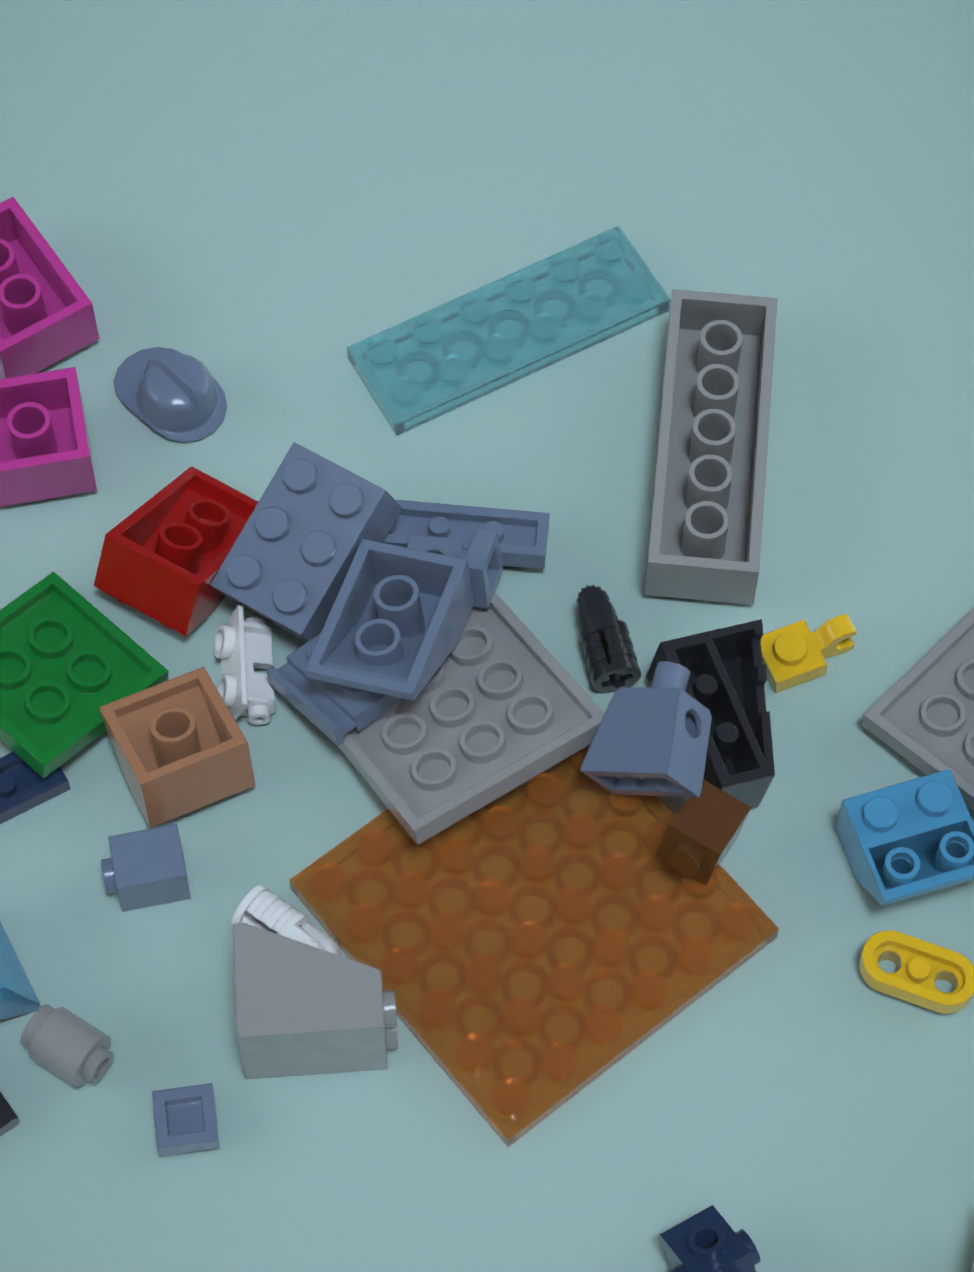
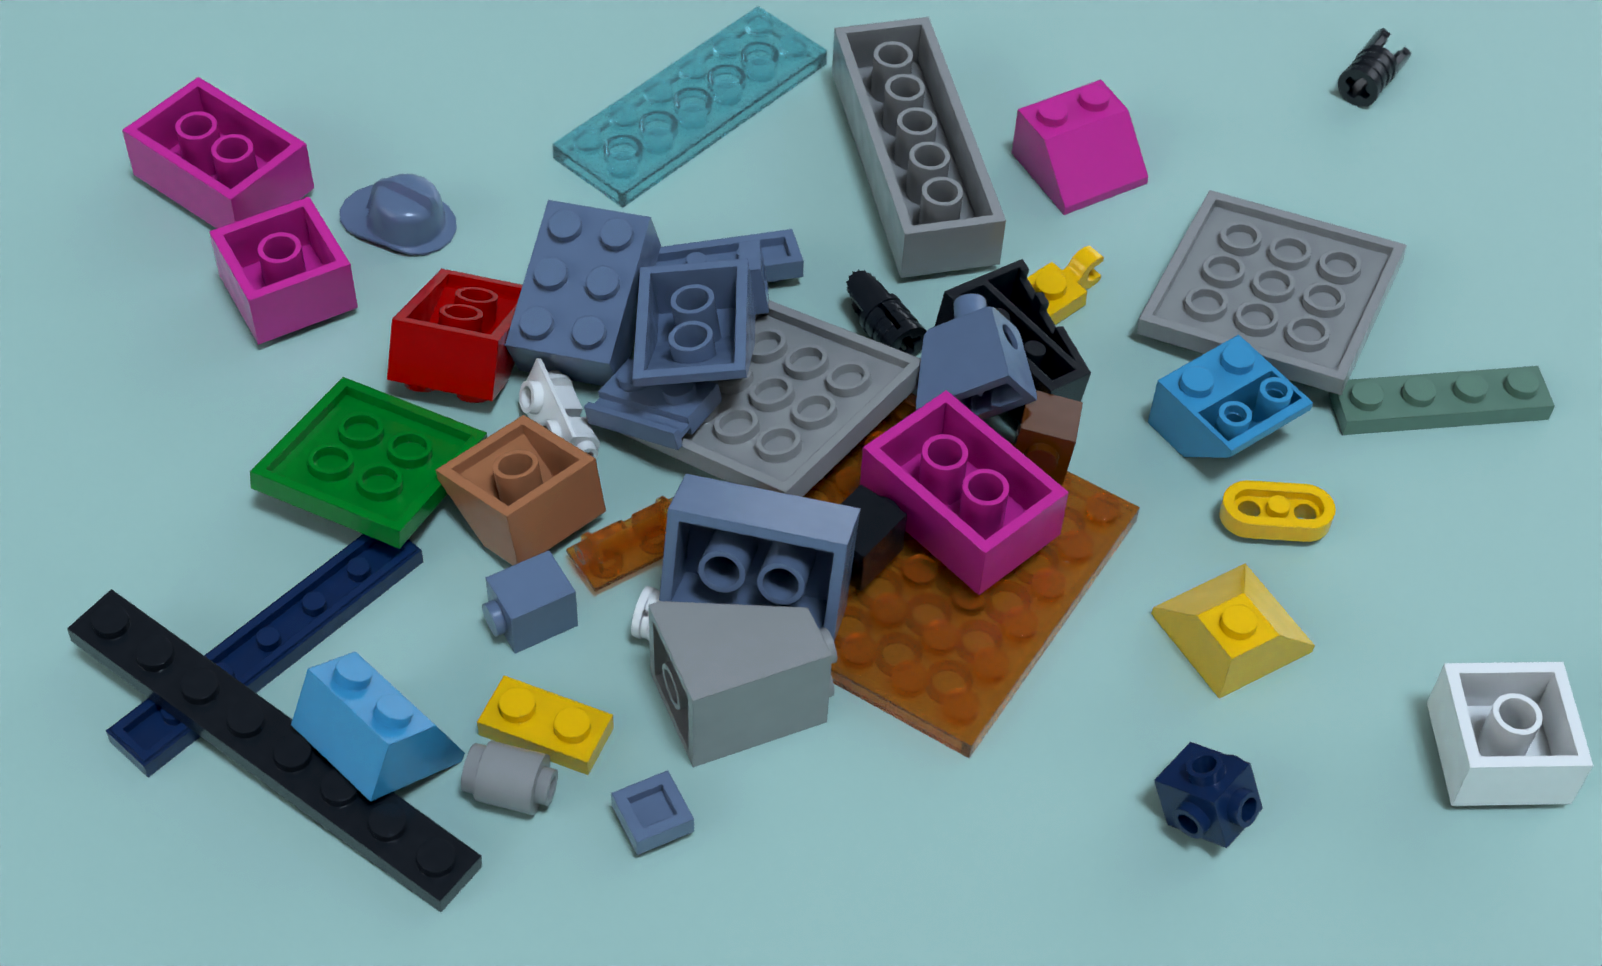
camera: 20 degrees left, 10 degrees down
(122, 997) = (546, 724): none -> yellow plate
(266, 829) = (622, 546): none -> clear orange hinge
(358, 897) = (758, 549): none -> sand blue brick
(477, 893) = (878, 534): none -> black brick
(590, 875) = (964, 491): none -> dark pink brick
(821, 1087) = (1232, 630): none -> yellow slope
(890, 489) = (1079, 147): none -> dark pink slope

